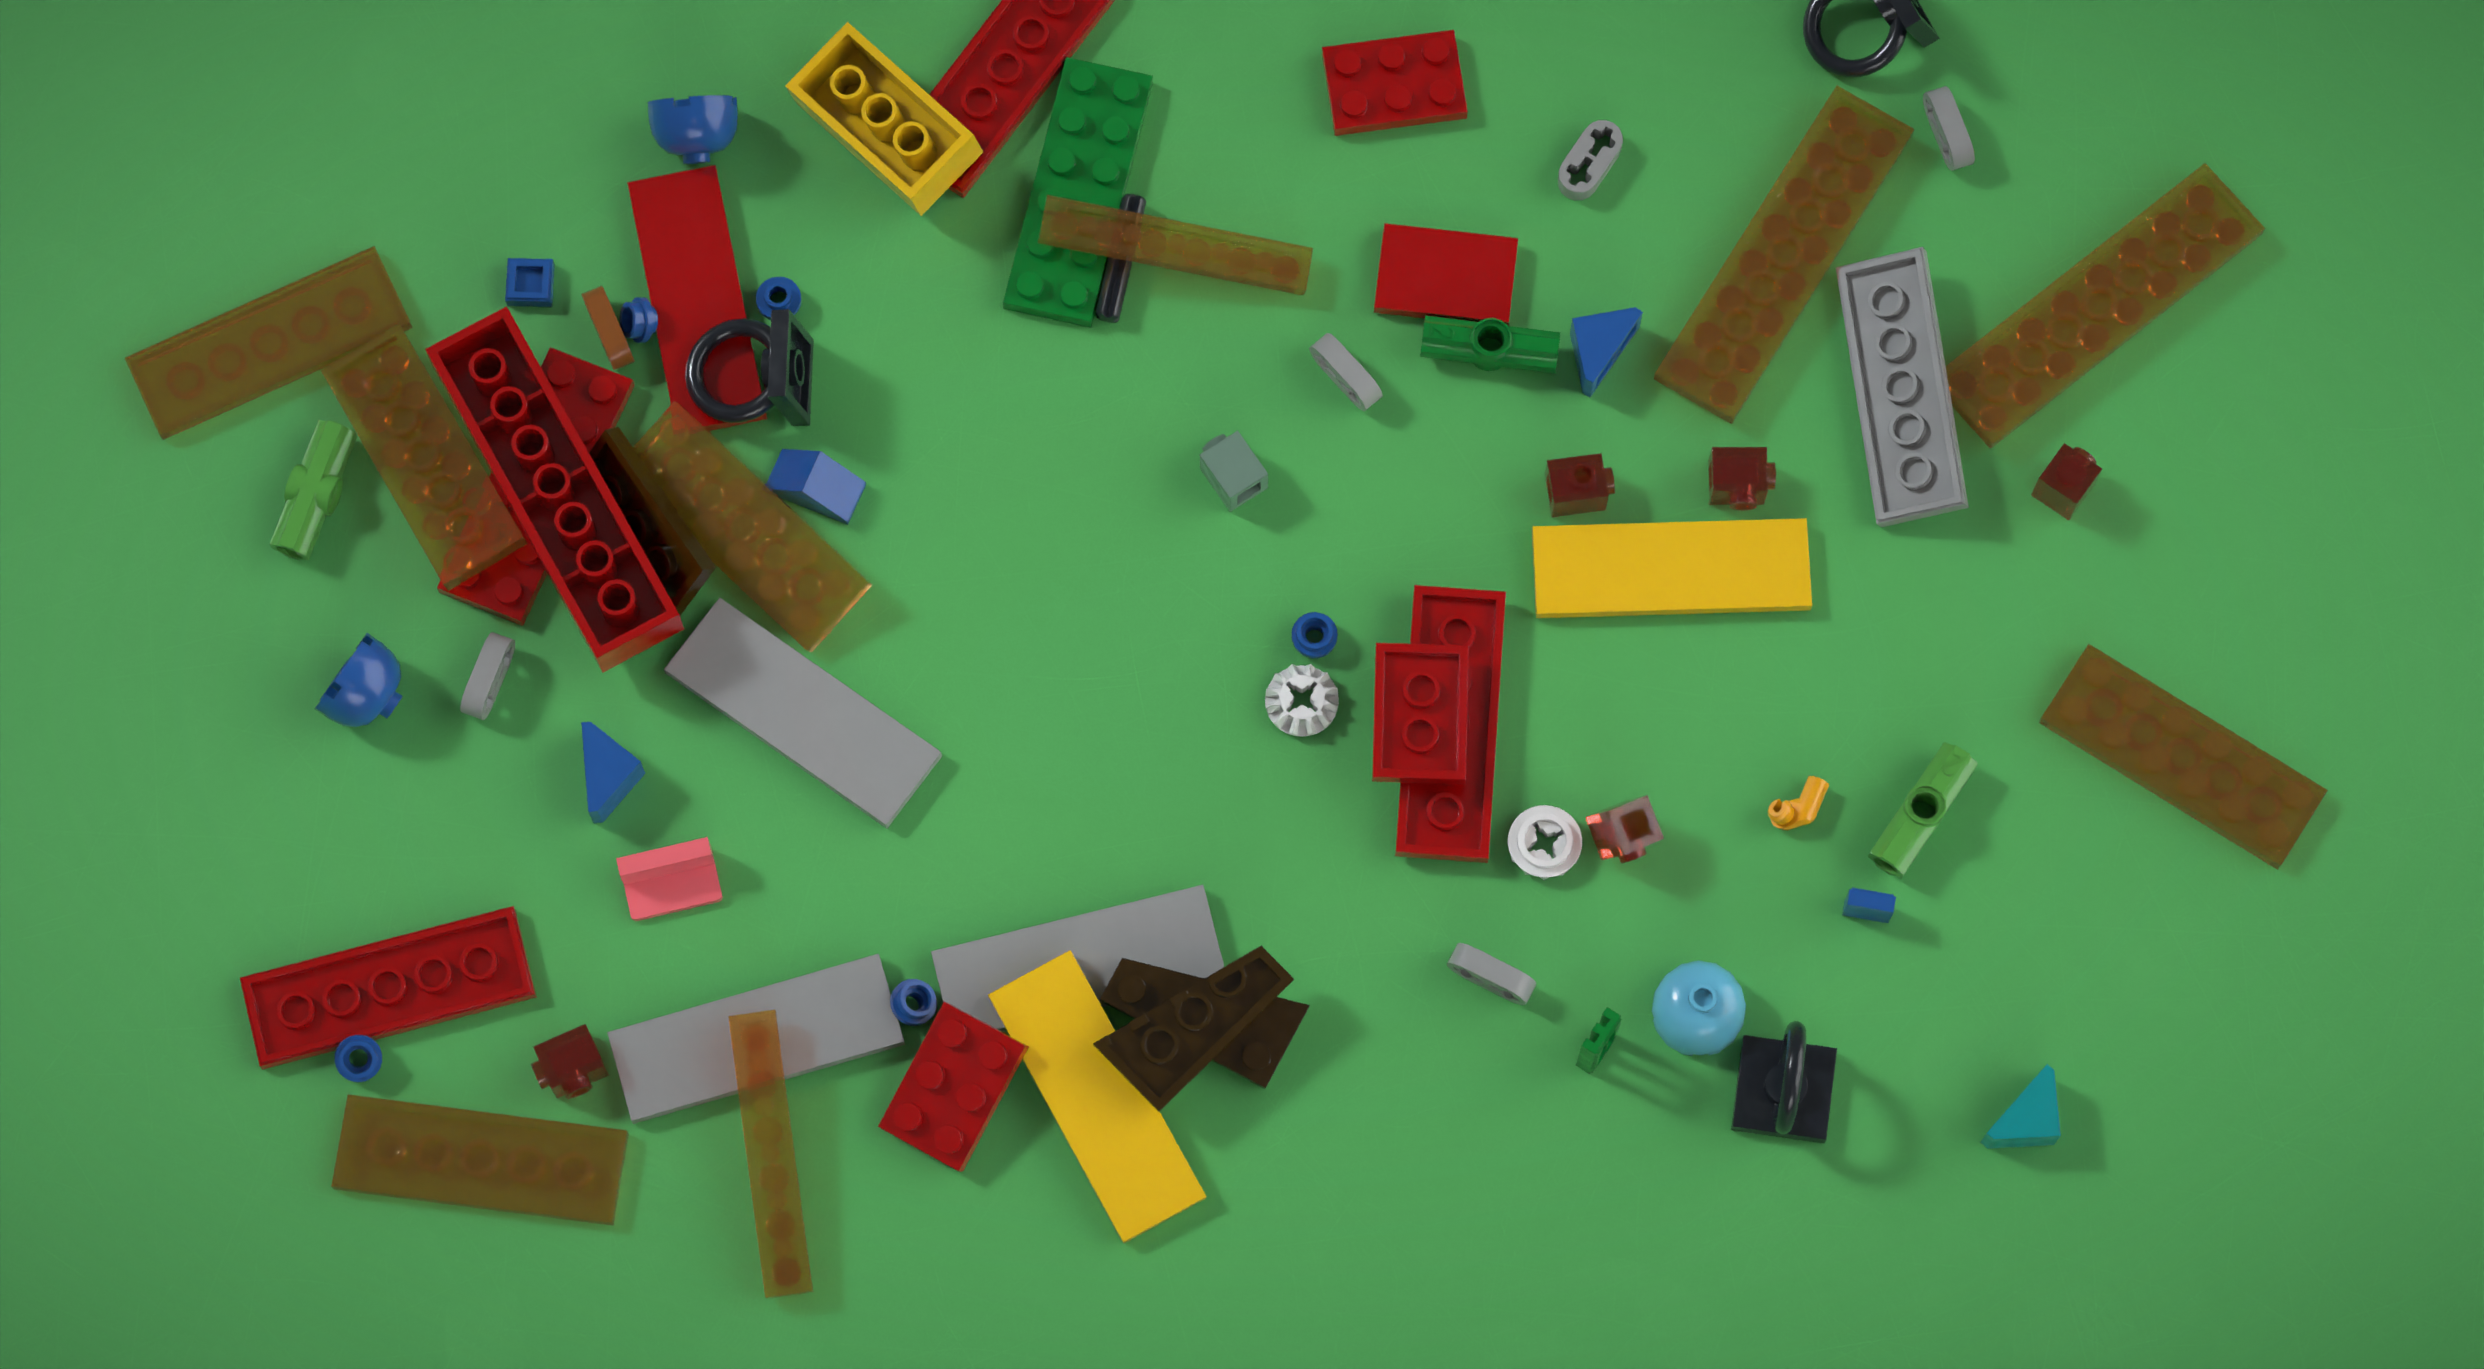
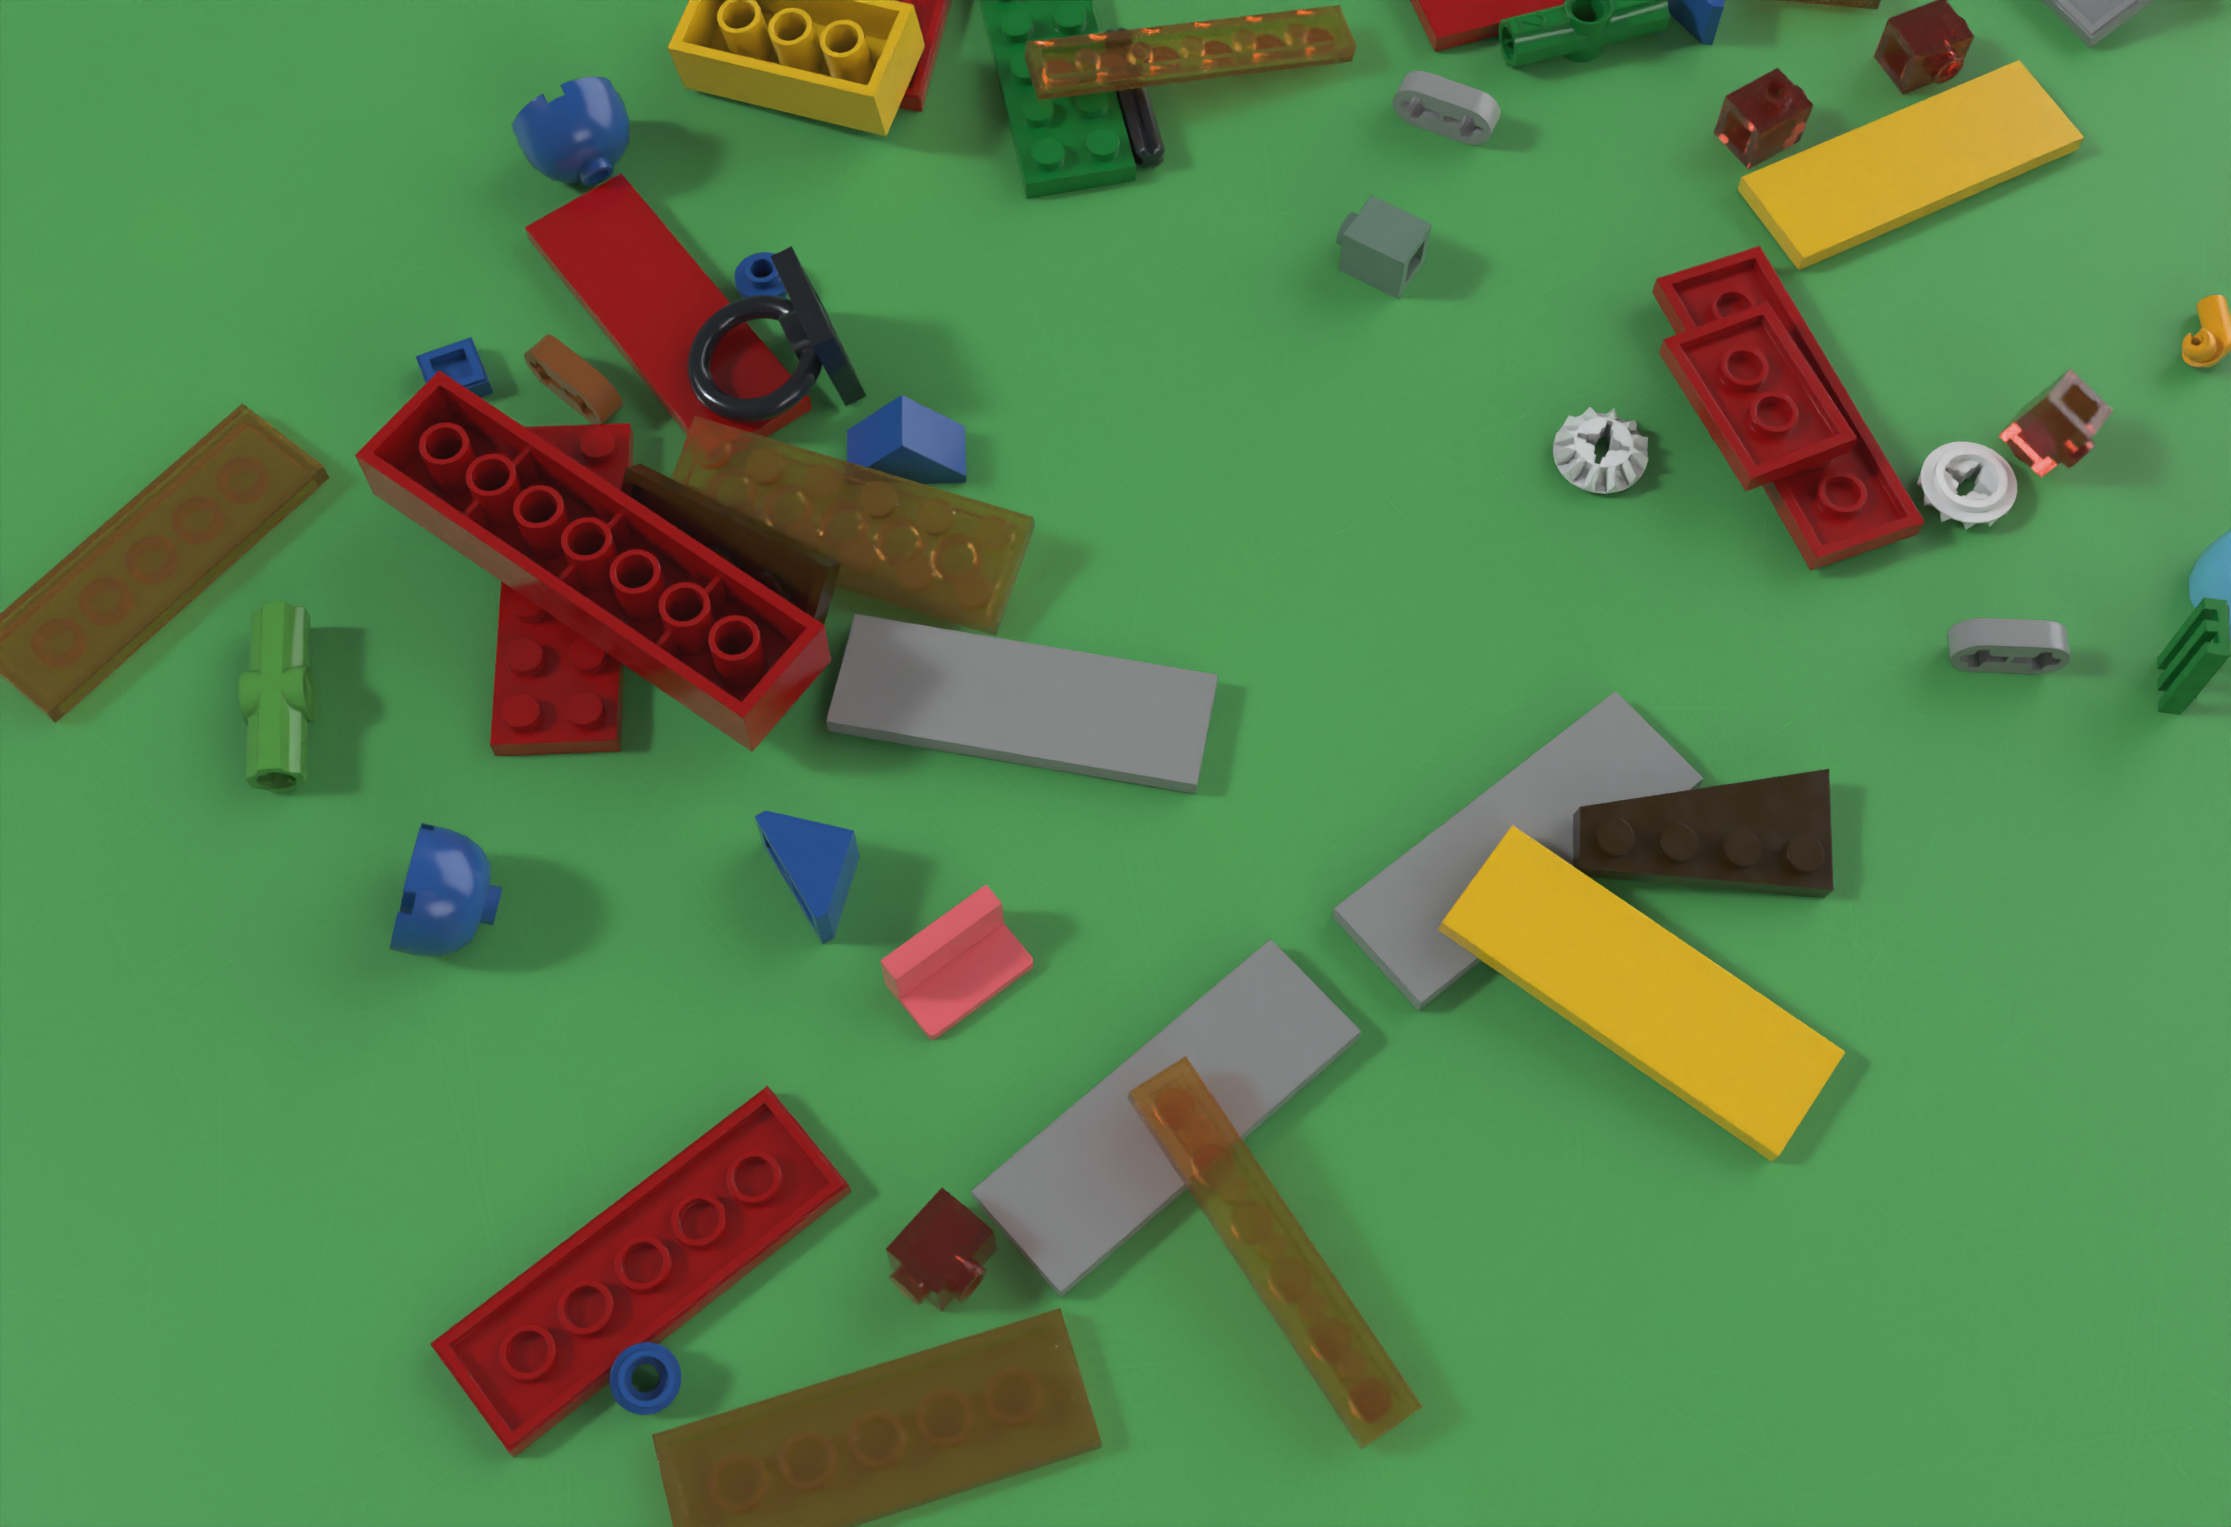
camera: 25 degrees left, 10 degrees down
(424, 457) = (410, 600): clear orange plate -> none
(487, 676) = (603, 820): light grey beam -> none
(638, 319) = (608, 354): blue plate -> none
(921, 993) = (1347, 977): blue plate -> none
(953, 1086) = (1458, 1057): red plate -> none
(1183, 1035) = (1718, 855): dark brown wing -> none
(1318, 622) = (1574, 364): blue plate -> none

